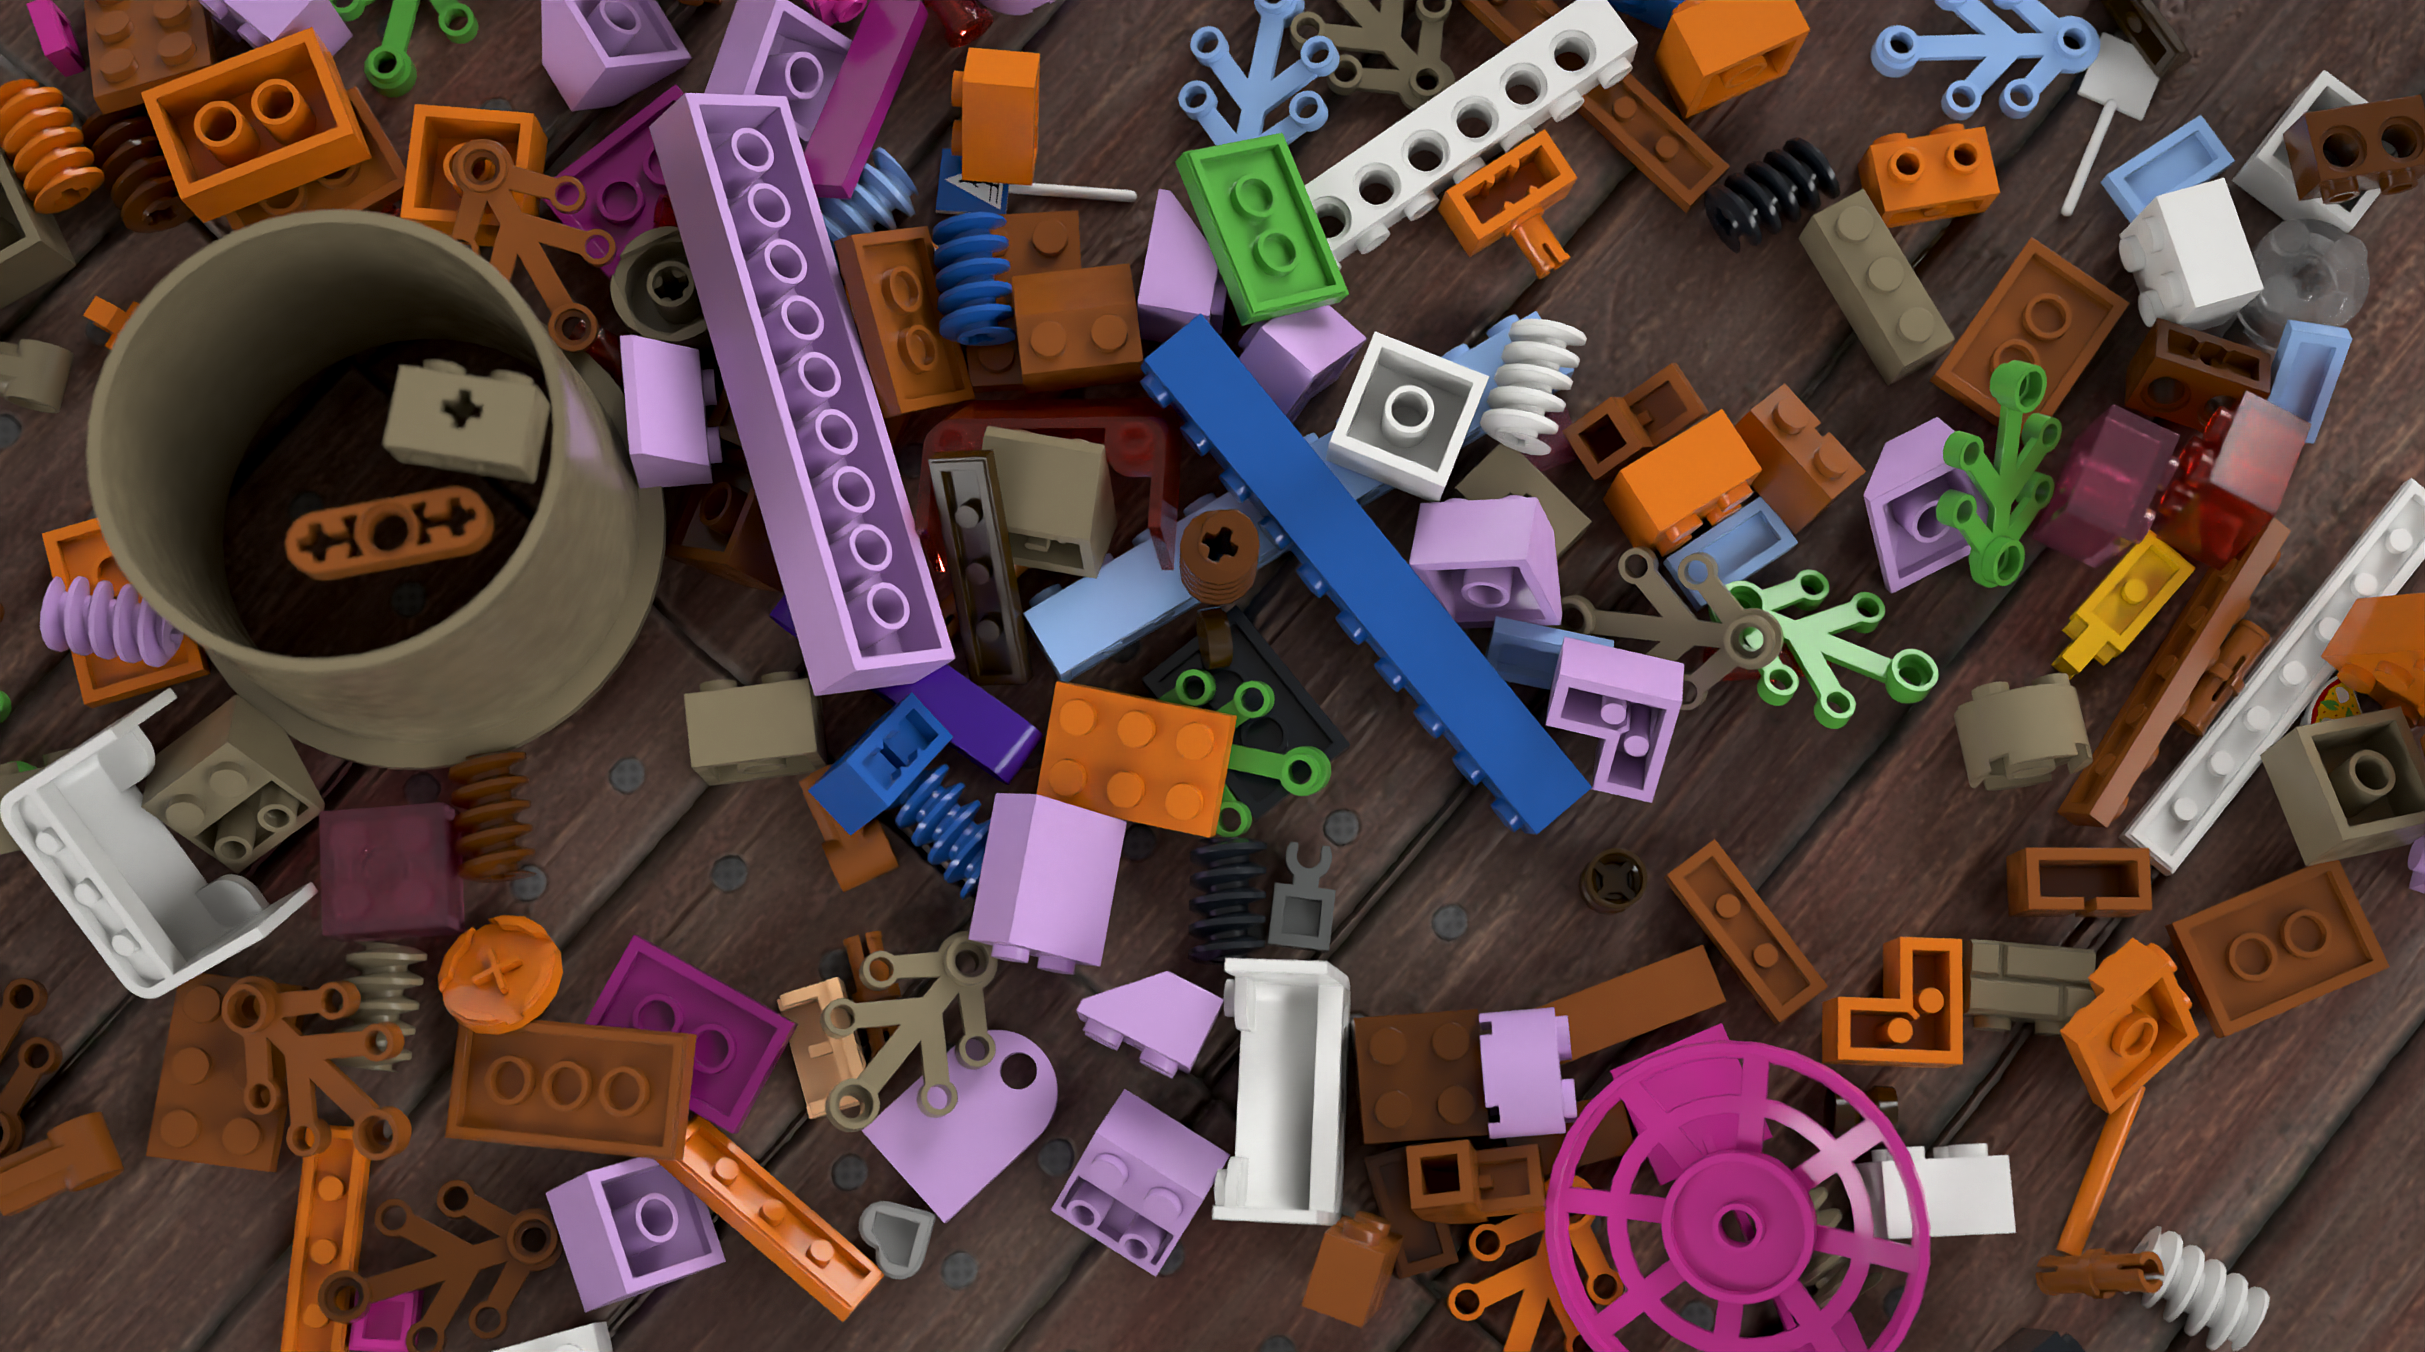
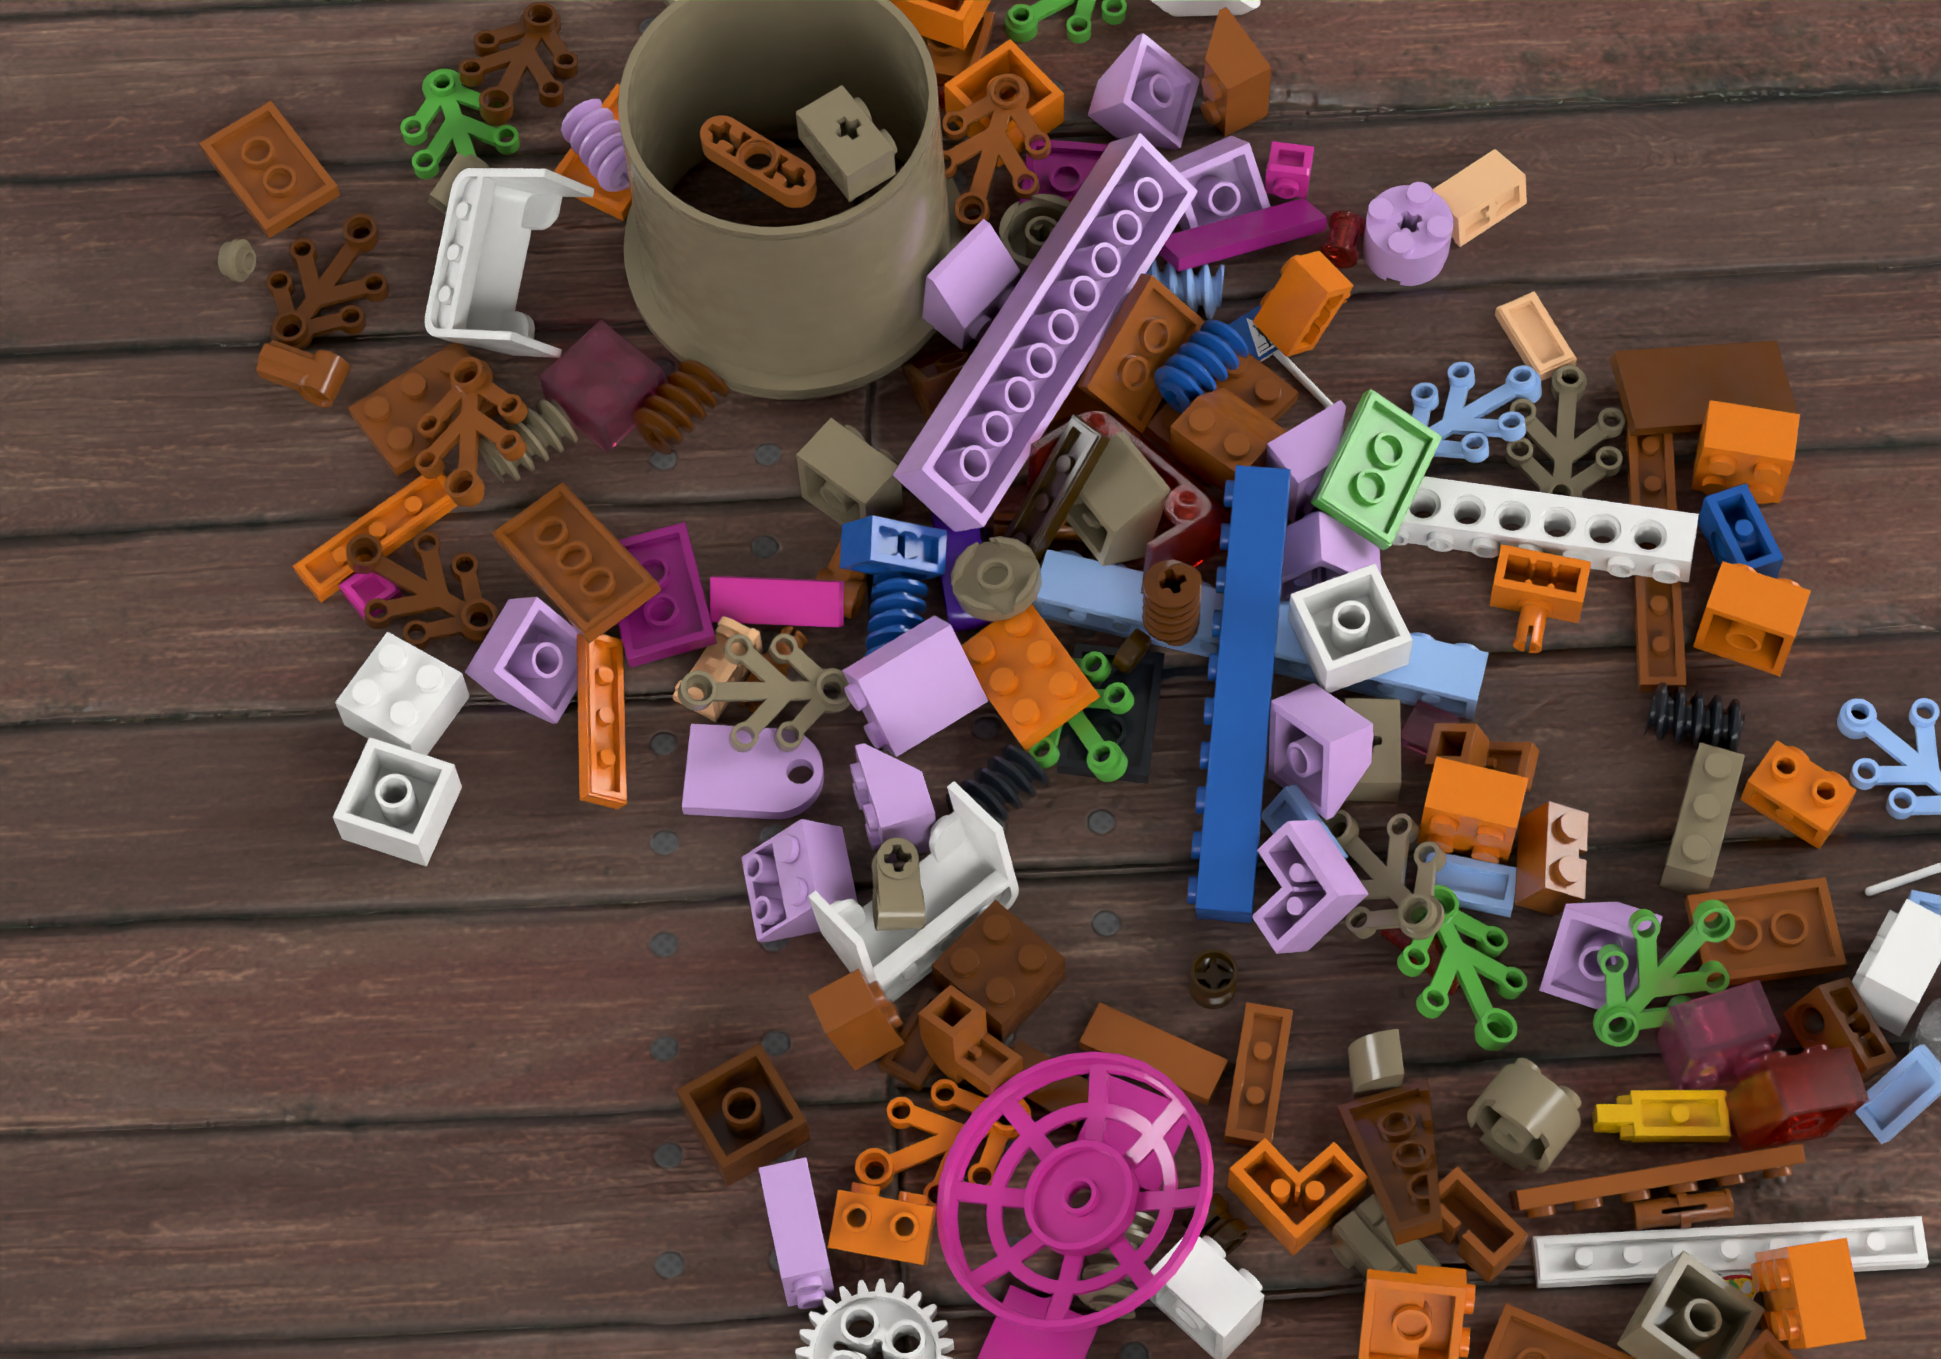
camera: 55 degrees right, 15 degrees down
(232, 785) = (575, 274): dark tan slope -> none
(500, 975) = (601, 481): orange tile -> none
(814, 925) = (777, 601): none -> dark pink tile
(898, 1235) = (652, 795): light grey tile -> none
(1012, 694) = (996, 579): none -> dark tan tile
(1264, 1110) = (897, 895): none -> dark tan piece
(1301, 910) = (1034, 835): dark grey plate -> none
(1525, 1072) = (1055, 1012): lavender brick -> none
(1527, 384) = (1439, 673): white piece -> none
(1837, 814) = (1375, 1063): none -> dark tan brick
(1949, 883) = (1398, 1154): none -> reddish brown wing

